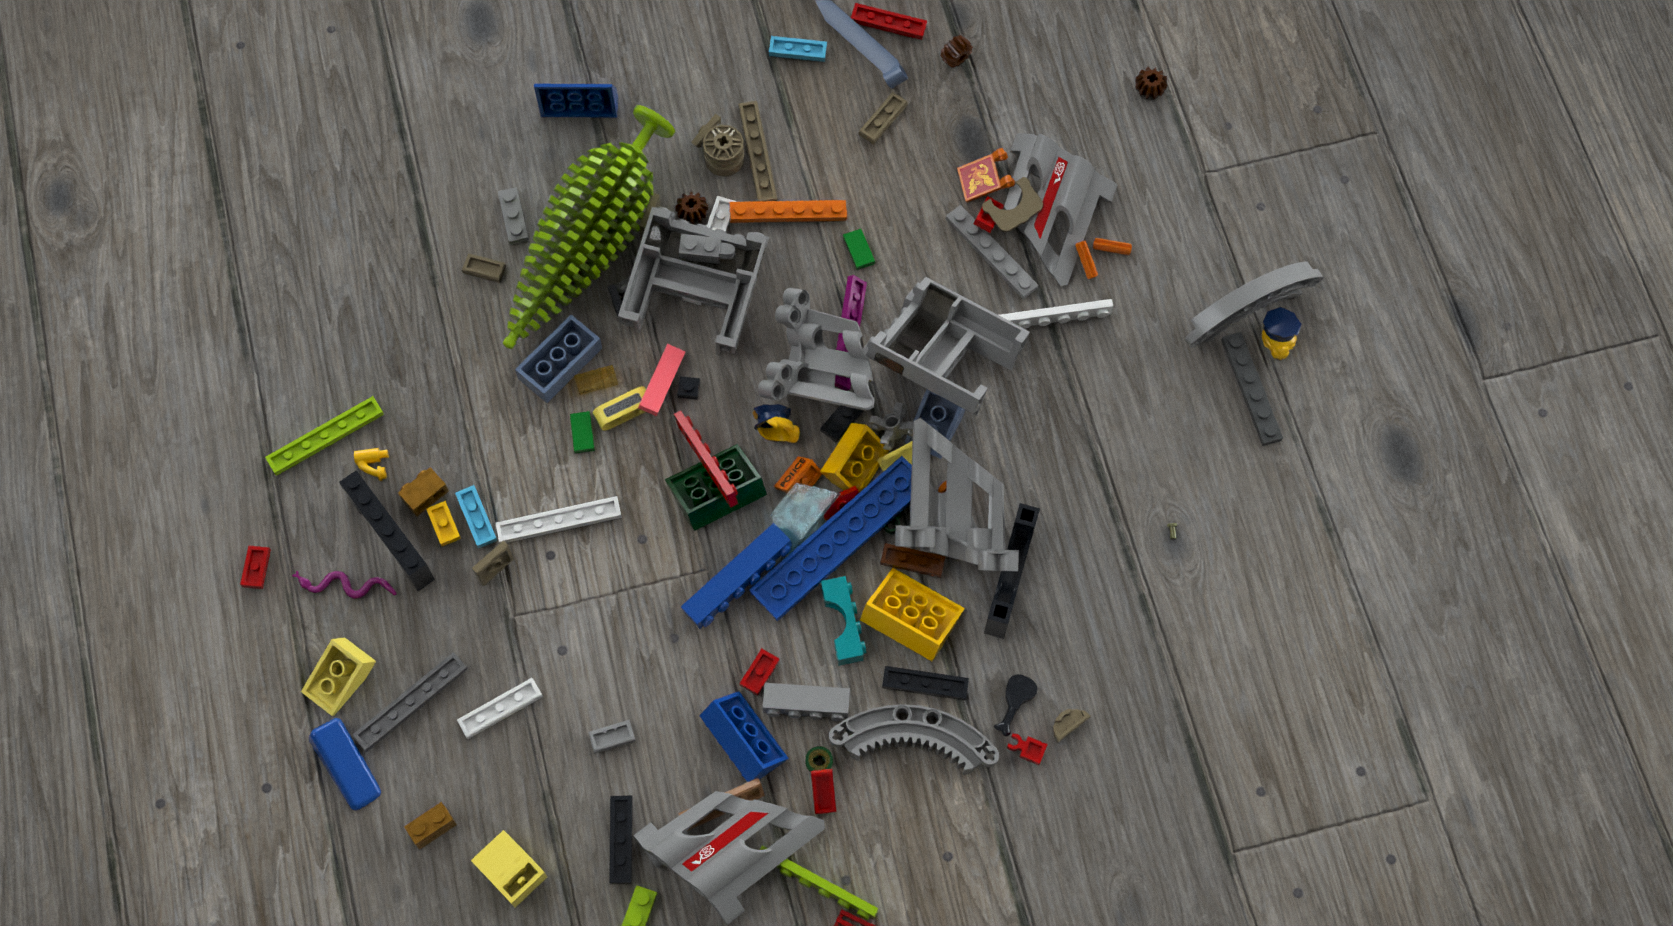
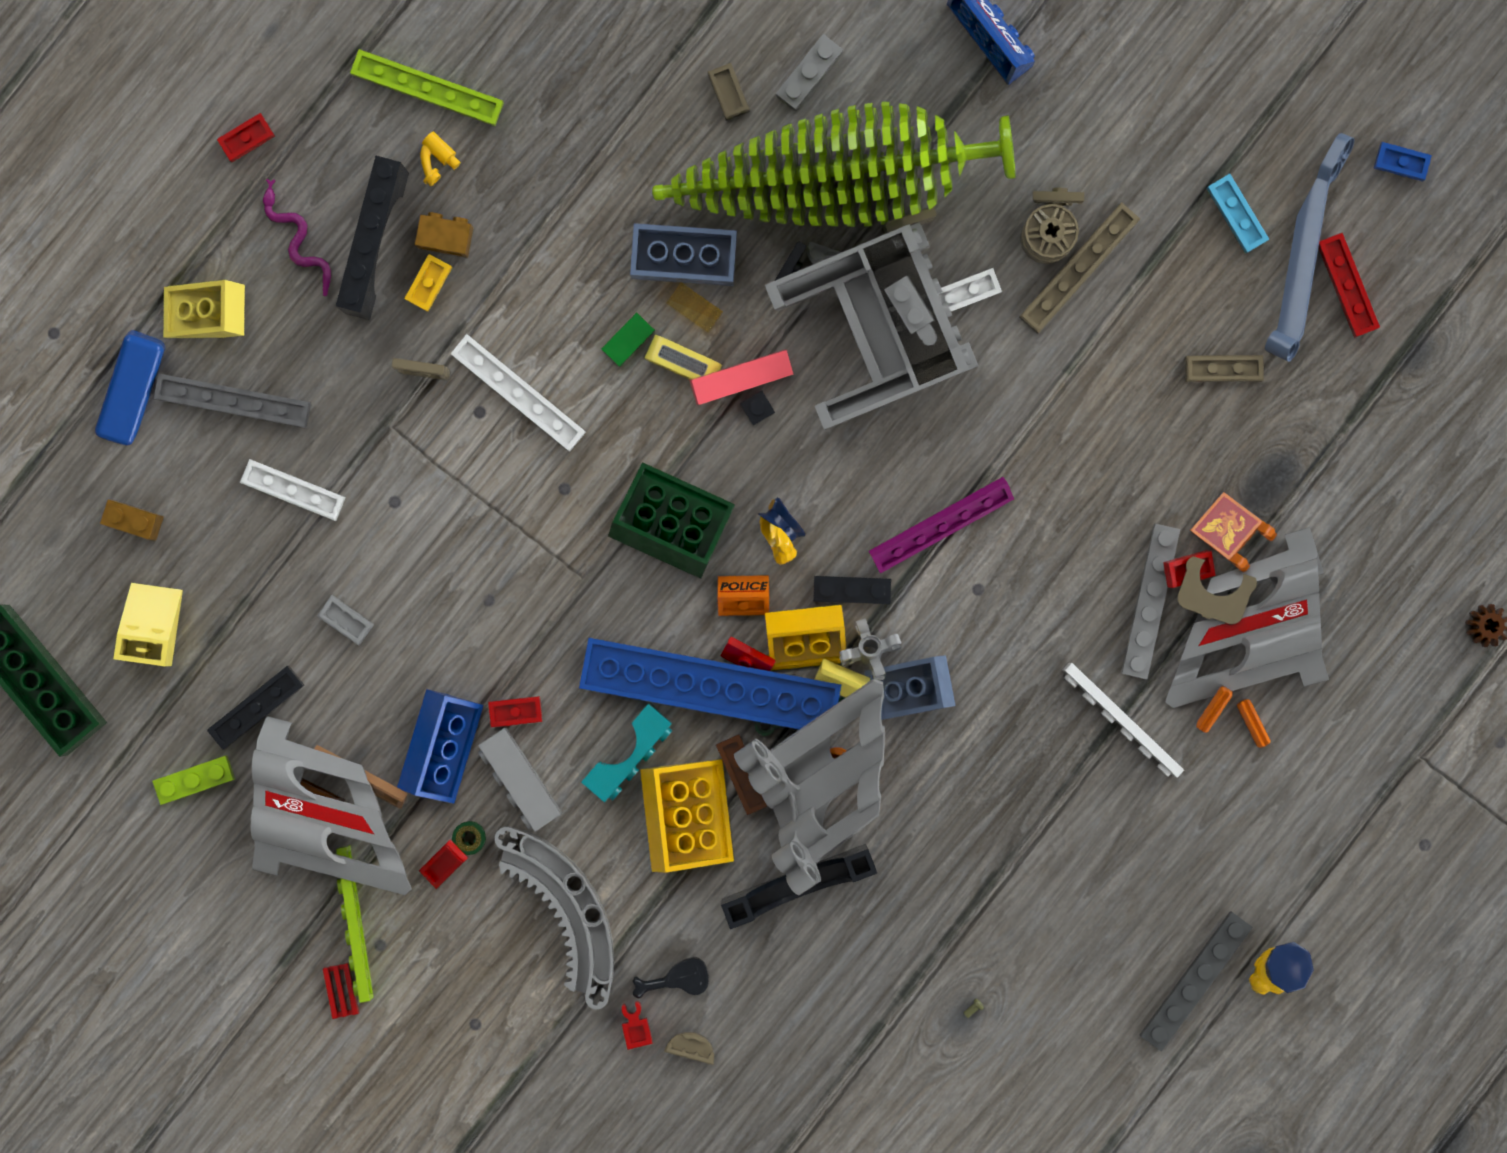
camera: 55 degrees right, 20 degrees up
(476, 516) = (459, 308): medium azure plate -> none
(685, 210) = (959, 242): reddish brown gear -> none
(710, 463) = (683, 502): plate -> none
(736, 576) = (592, 616): blue brick -> none
(787, 211) = (1032, 355): orange plate -> none
(802, 511) = (705, 629): clear light blue wing -> none
(811, 364) = (864, 524): light grey panel -> none
(858, 249) = (1047, 461): green tile -> none
(925, 683) = (626, 880): black plate -> none
(936, 333) = (993, 619): light grey piece -> none
(956, 51) = (1363, 389): reddish brown gear -> none
(1251, 297) = (1292, 920): light grey gear -> none

